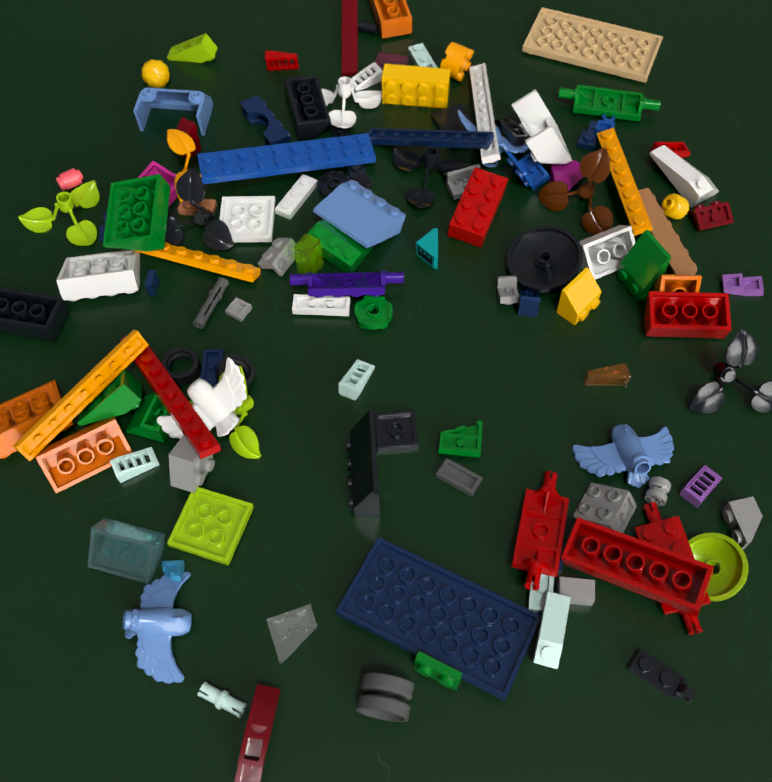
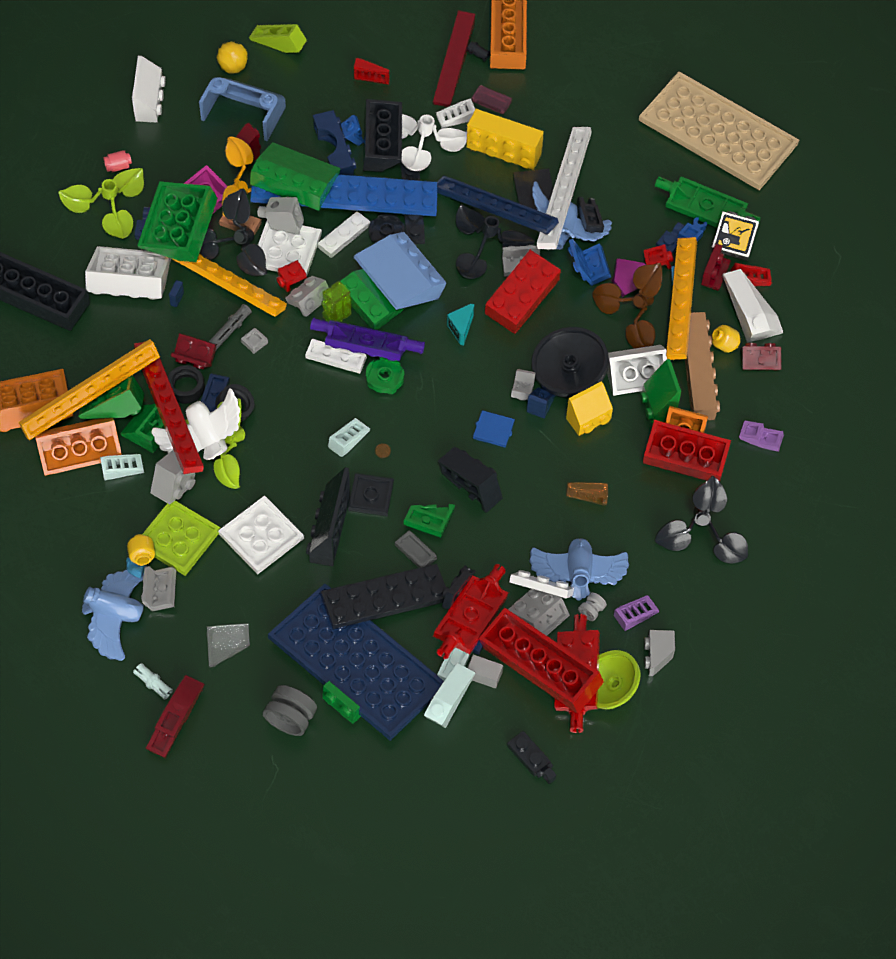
camera: 10 degrees right, 0 degrees up
(84, 114) = (148, 91): none -> white slope
(125, 550) = (96, 539): clear light blue slope -> none
(174, 551) = (141, 549): none -> yellow head
(182, 332) = (194, 351): none -> dark red bracket
(203, 588) = (159, 588): none -> light grey bracket
(235, 188) = (283, 214): none -> light grey torso
(236, 152) = (294, 175): none -> green slope
(256, 241) = (290, 274): none -> red bracket
(278, 107) = (352, 130): none -> blue bracket
(297, 501) = (261, 534): none -> white plate
(393, 384) = (382, 450): none -> clear orange piece
(421, 56) = (525, 104): light aqua hinge -> none
(444, 535) = (383, 596): none -> black plate
(457, 60) = (558, 119): light orange brick -> none
(491, 387) = (472, 476): none -> black wedge
(493, 338) = (493, 429): none -> blue piece
(517, 503) = (458, 584): none -> black hinge
(545, 139) = (624, 227): white windscreen -> none
(583, 149) = (658, 255): none -> red bracket
(601, 480) = (542, 584): none -> white plate
(639, 151) = (715, 269): none -> dark red bracket
(646, 119) = (736, 235): none -> piece

